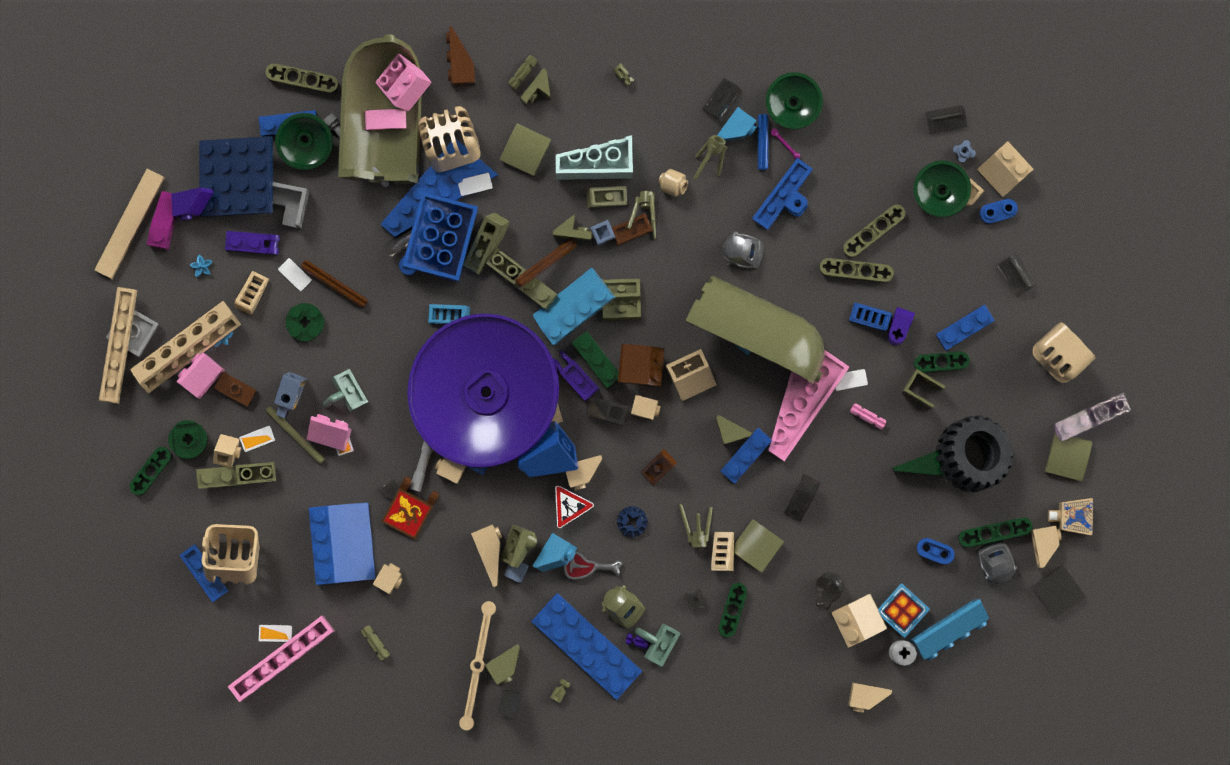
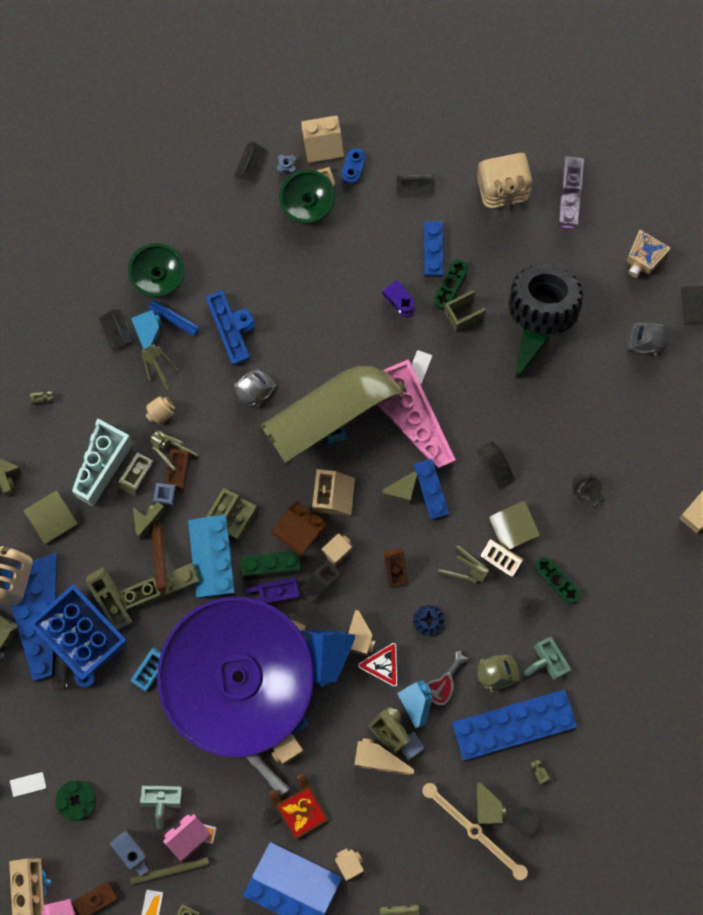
camera: 55 degrees left, 10 degrees down
(257, 295) = (21, 848): tan slope -> none
(334, 283) = (58, 753): reddish brown axle -> none
(475, 184) = (52, 577): white sticker -> none
(638, 641) = (537, 677): dark purple piece -> none
(774, 133) = (172, 304): magenta hinge -> none
(856, 267) = (328, 305): olive beam -> none
(859, 620) = (630, 478): tan slope -> none
(868, 416) = (459, 370): bright pink axle -> none
(872, 229) = (306, 273): olive beam -> none
(883, 328) = (373, 313): blue slope -> none
(903, 610) = (642, 439): tile -> none
(907, 658) = (679, 458): light grey piece -> none
(935, 550) = (605, 382): blue plate -> none
(950, 629) = (681, 408): dark azure slope -> none
(995, 534) = (619, 325): dark green beam -> none
(1045, 544) = (655, 291): tan slope -> none
(1068, 457) = (593, 230): olive slope -> none

